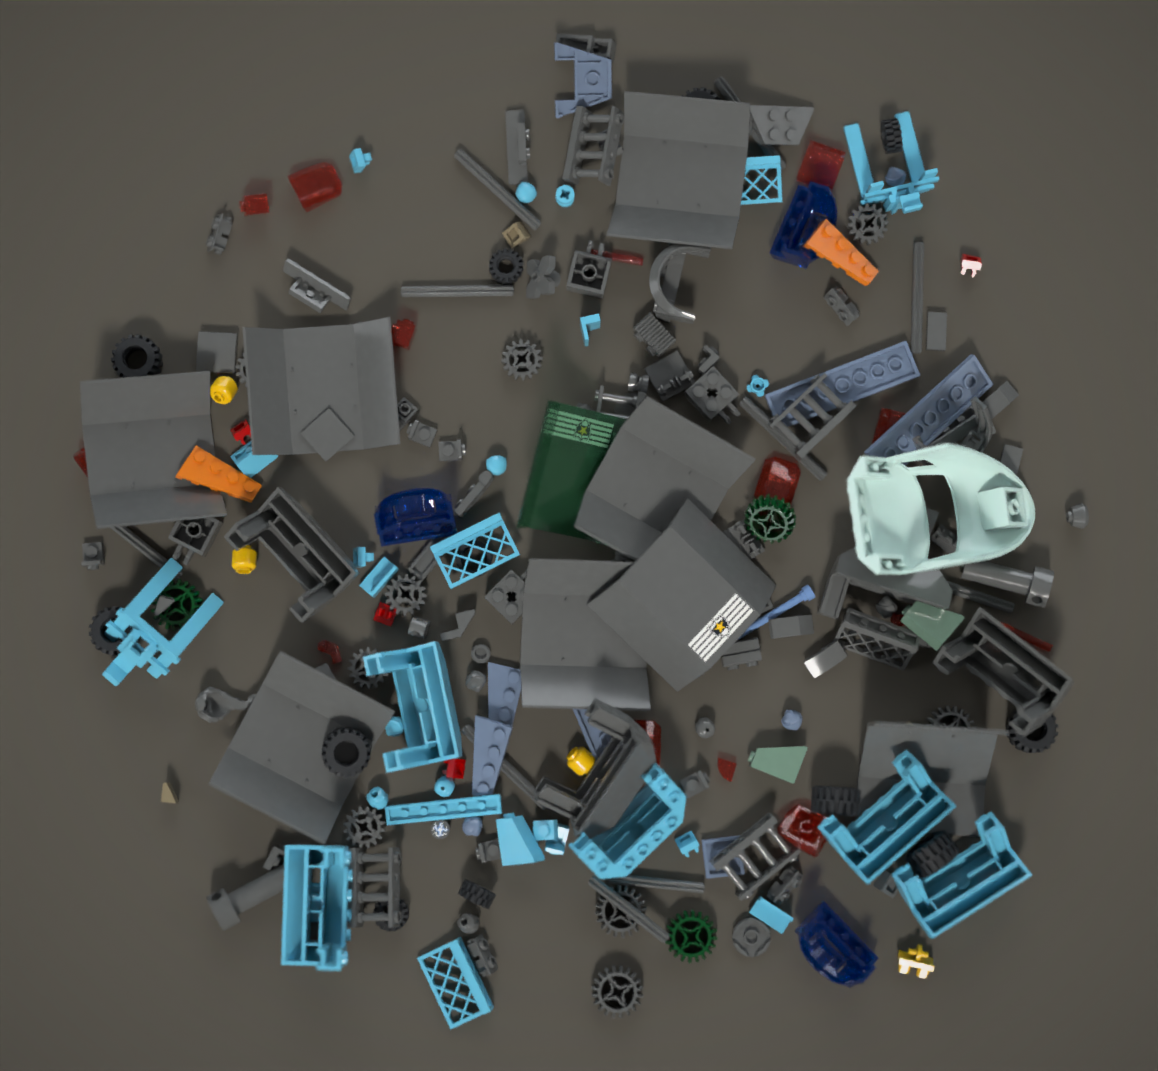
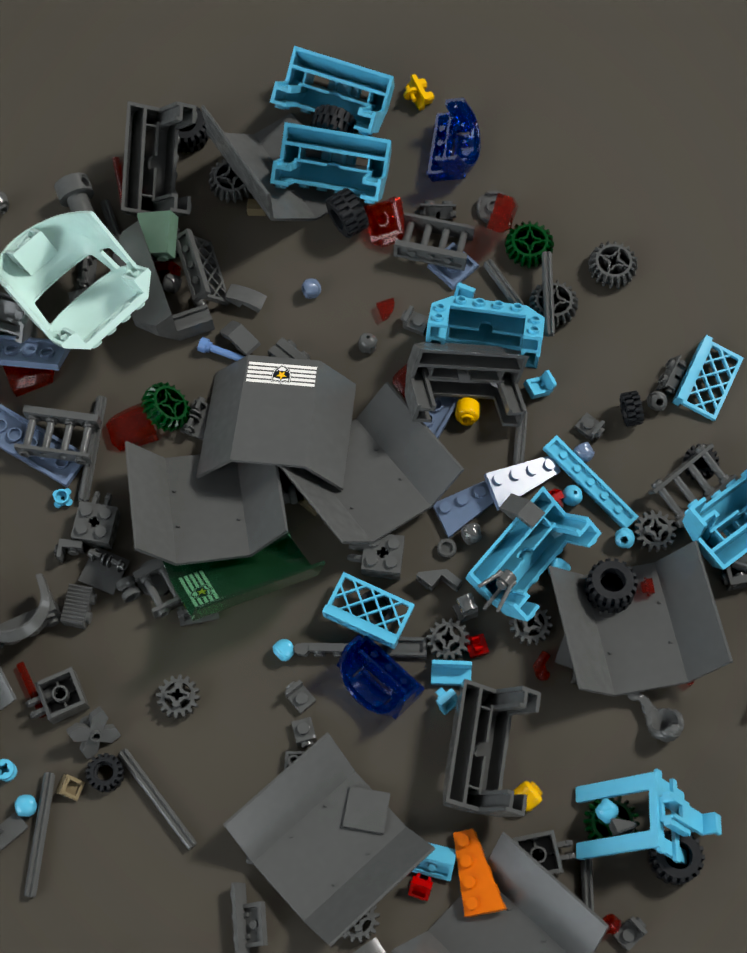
camera: 120 degrees left, 15 degrees down
(109, 545) = (613, 922): none -> clear red plate
(183, 604) = (606, 810): none -> medium azure piece
(223, 390) = (397, 932): yellow head -> none
(324, 781) = (647, 586): none -> clear red plate
(403, 333) = (225, 811): clear red brick -> none
(408, 666) = (505, 580): none -> dark grey plant
(440, 829) = (607, 474): dark grey tile -> none
(452, 724) = (523, 509): none -> dark grey slope
(517, 841) = (567, 408): medium azure slope -> none
(545, 829) = (541, 395): medium azure bracket -> none
(589, 323) = (112, 663): medium azure panel -> none
(729, 931) = (503, 213): none -> clear red slope
(770, 914) = (466, 205): medium azure panel -> none
(778, 761) = (349, 275): sand green slope -> none

